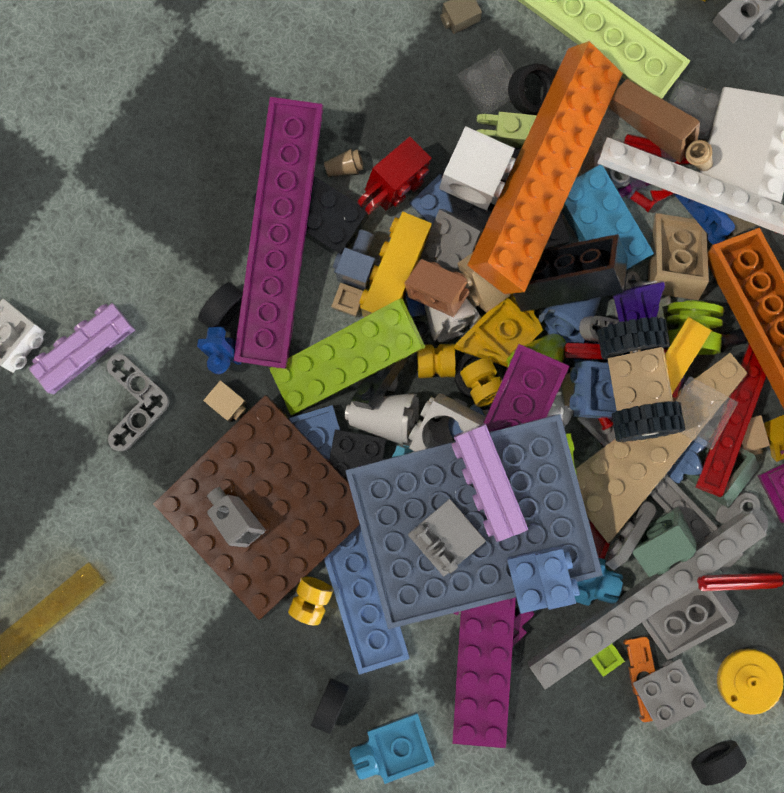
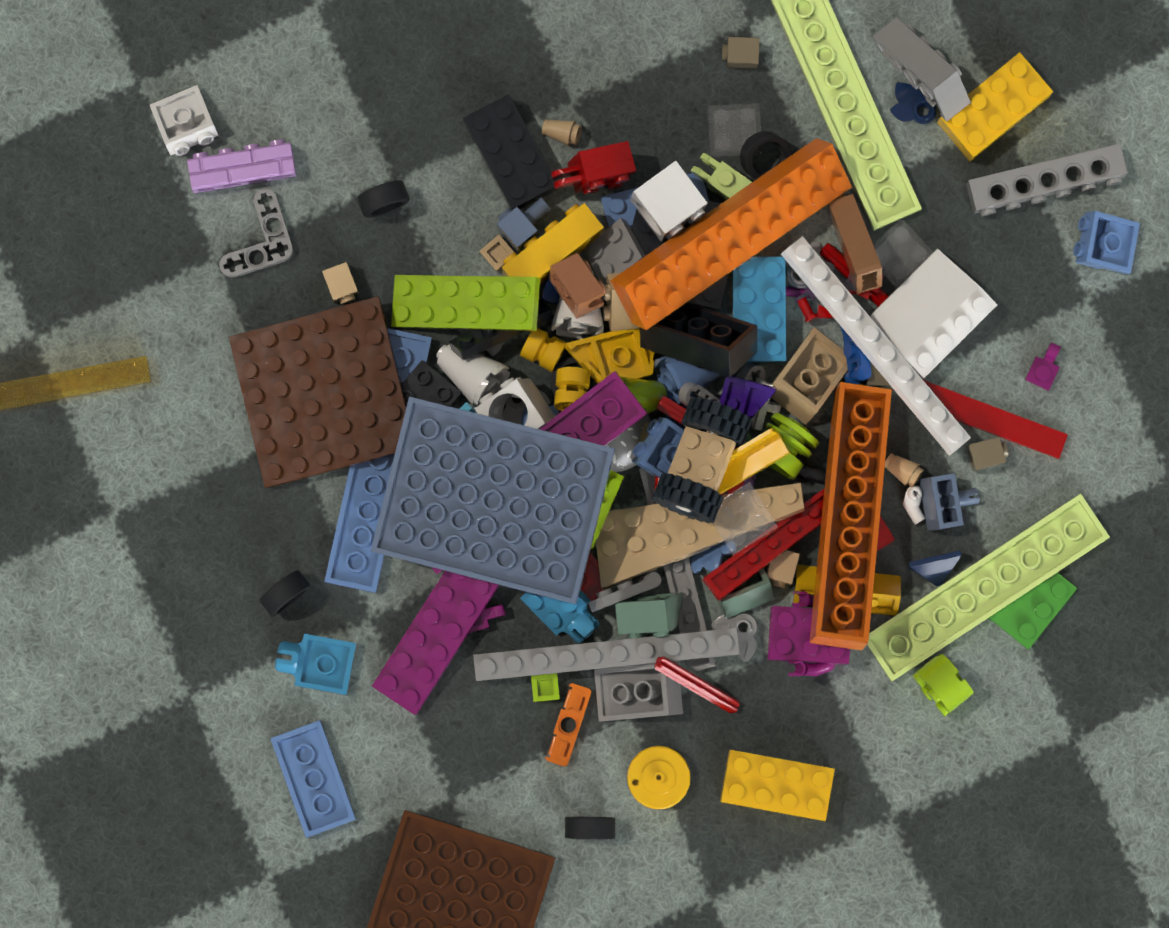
camera: 30 degrees right, 0 degrees up
(218, 349) = (360, 235): blue hips -> none
(233, 519) = (292, 387): light grey torso -> none
(278, 232) = (467, 162): magenta plate -> none
(309, 604) = (324, 488): yellow wheel -> none
(446, 537) = (462, 499): light grey hinge -> none
(490, 482) = (523, 472): lavender brick -> none
(543, 579) = (522, 578): medium blue plate -> none
(669, 694) = (581, 748): light grey hinge -> none
(700, 155) = (874, 297): tan cone -> none

